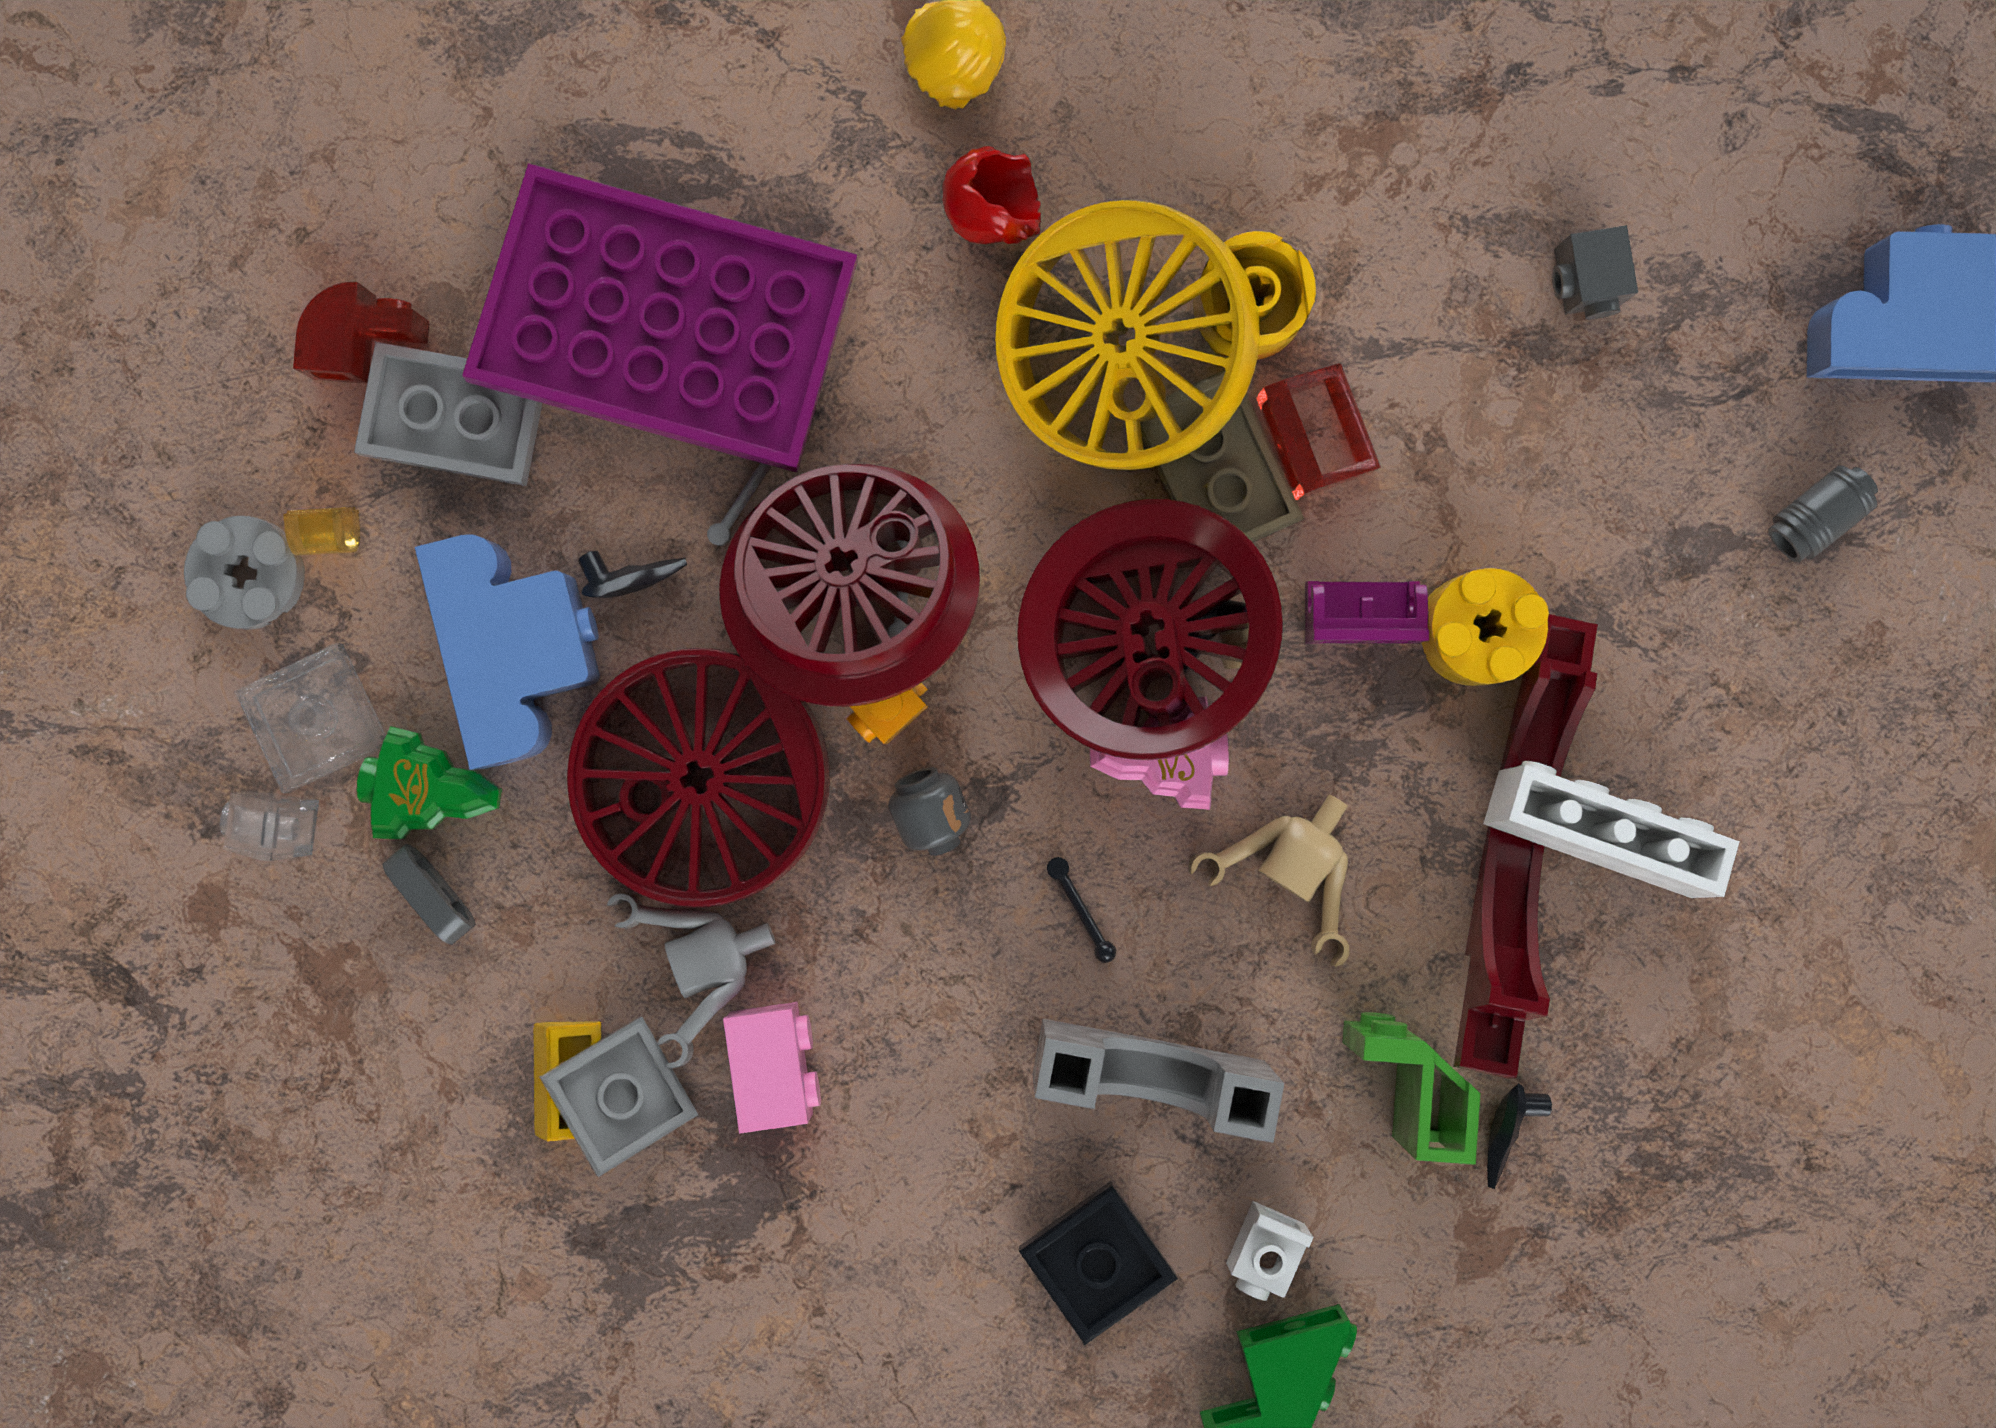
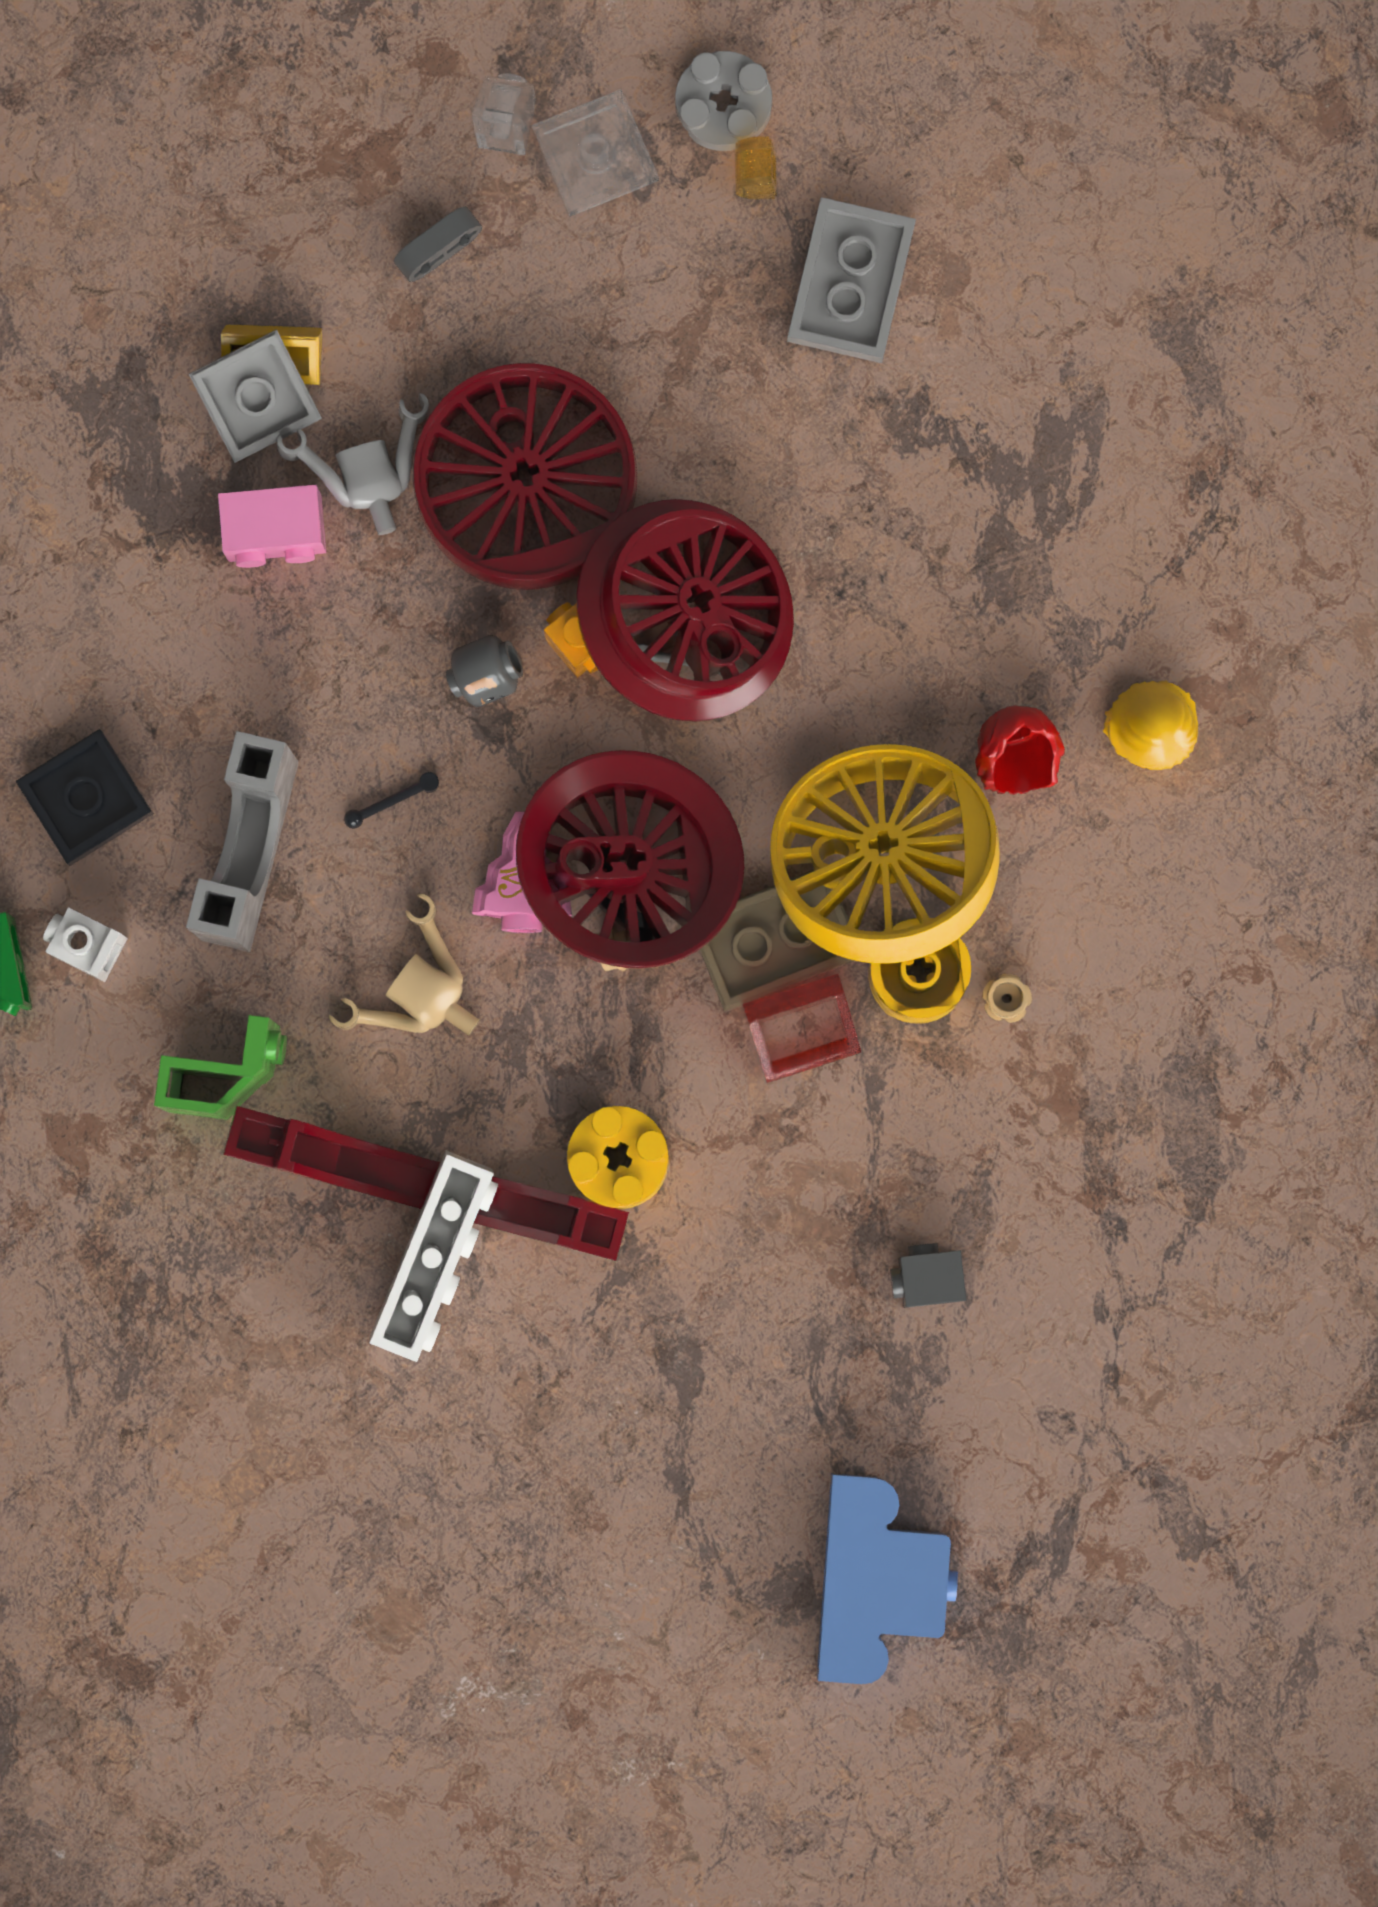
camera: 95 degrees right, 5 degrees down
(339, 330) = (925, 188): clear red brick -> none
(419, 787) = (530, 239): green rock -> none
(504, 645) = (648, 317): medium blue brick -> none
(625, 580) = (700, 422): black bar -> none
(661, 318) = (924, 462): magenta plate -> none
(720, 533) = (738, 505): light grey hinge -> none
(1272, 188) = (1020, 998): none -> tan plate
(1366, 612) = (639, 1058): magenta hinge -> none
(1507, 1125) = (178, 1161): black bar -> none
(1824, 513) = (705, 1472): dark grey head -> none

